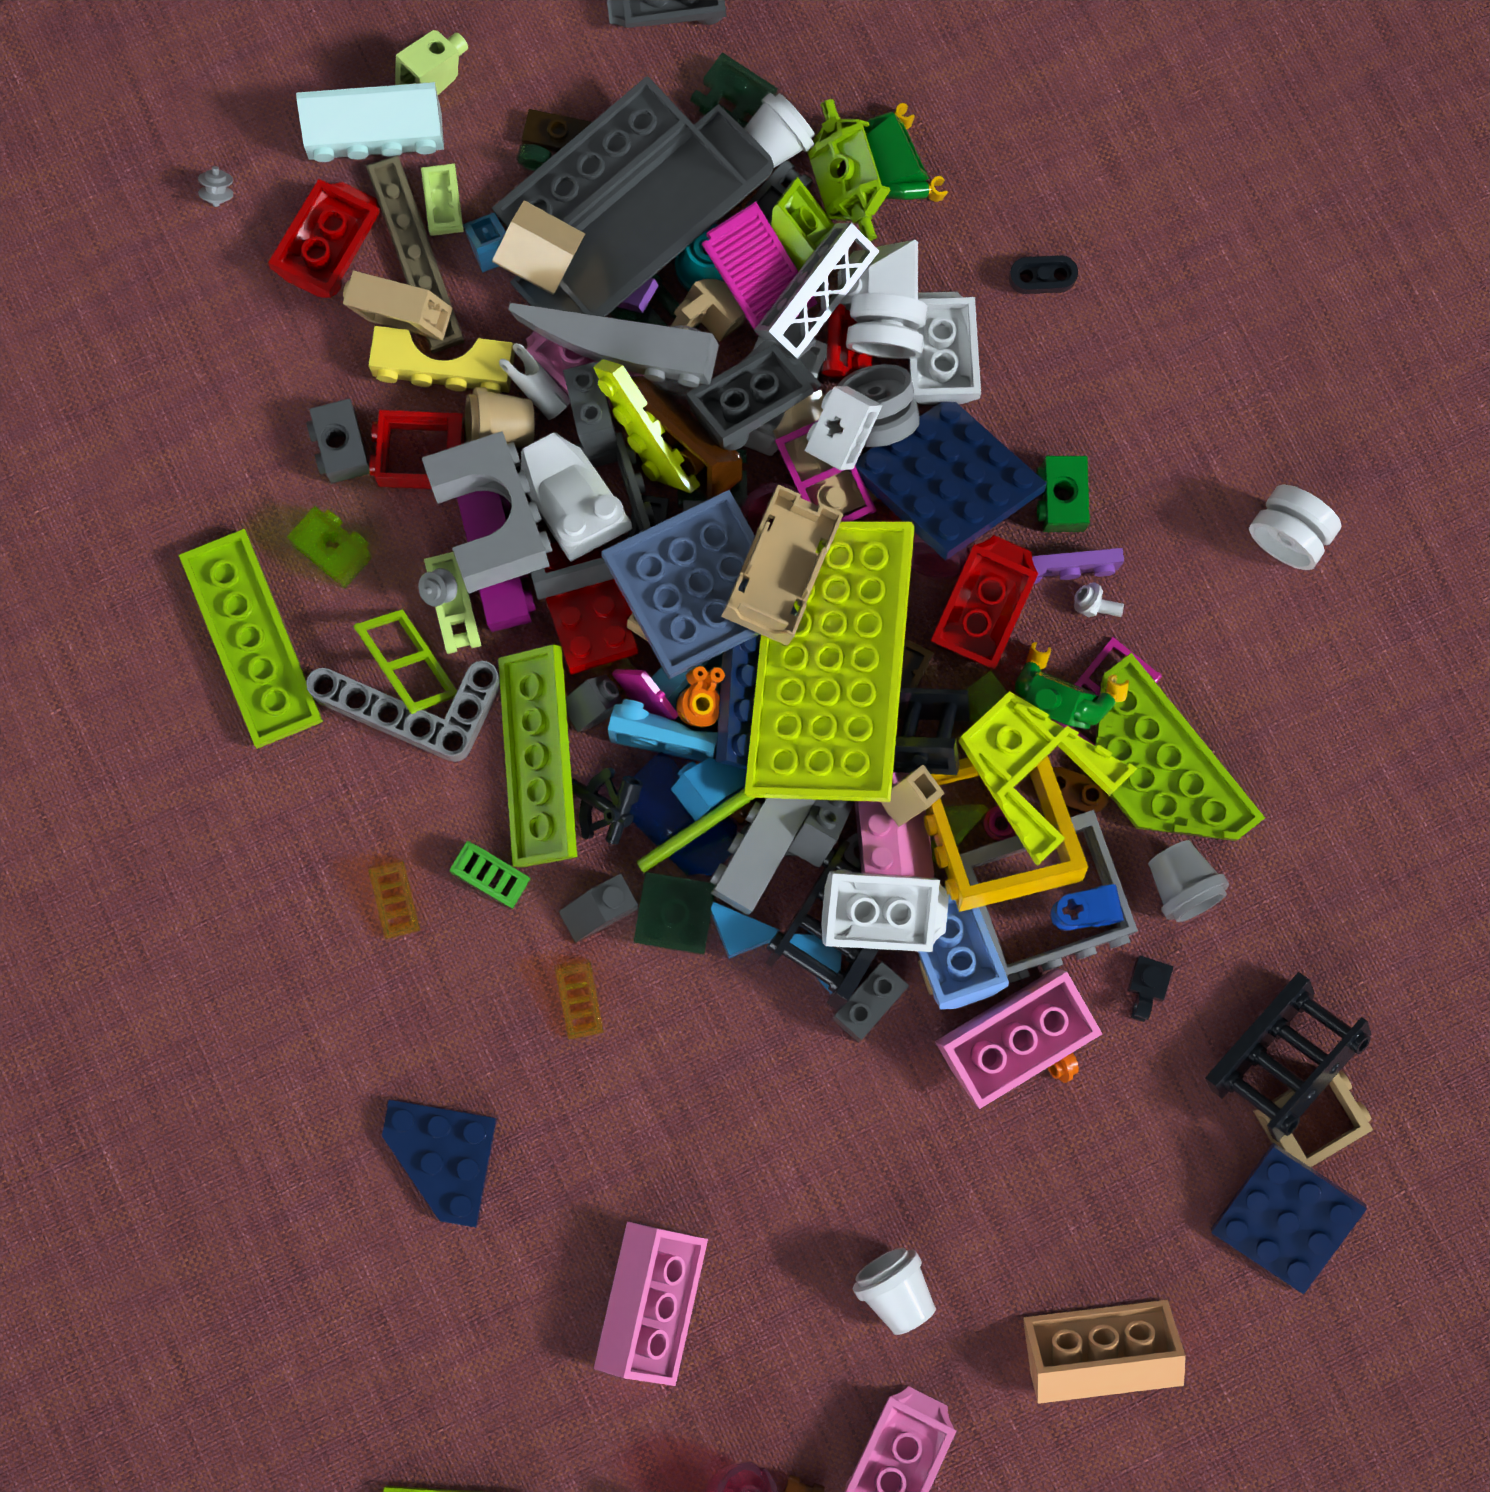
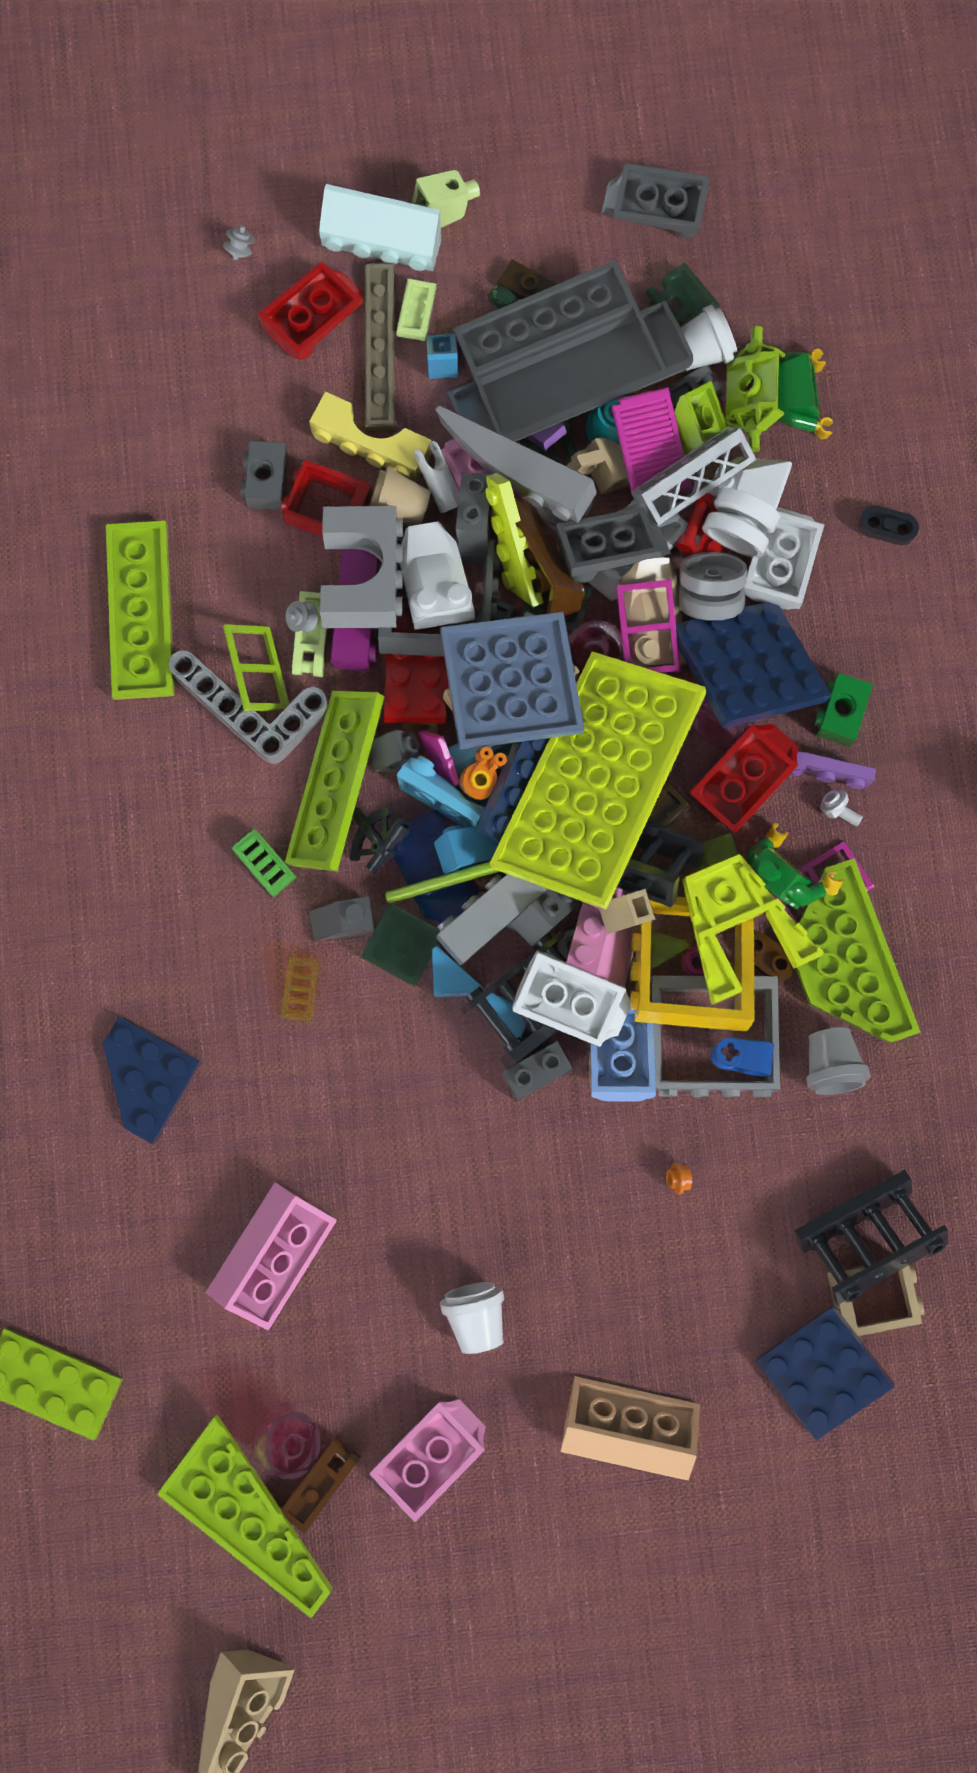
camera: 25 degrees right, 0 degrees up
(340, 563) = (232, 573): clear neon green brick -> none
(385, 869) = (170, 843): clear yellow slope -> none
(397, 305) = (348, 380): tan window -> none
(538, 247) = (477, 368): tan slope -> none
(782, 565) = (584, 687): tan piece -> none
(857, 418) = (669, 605): white brick -> none
(1019, 1037) = (650, 1143): bright pink slope -> none
(1149, 982) = (776, 1136): black plate -> none

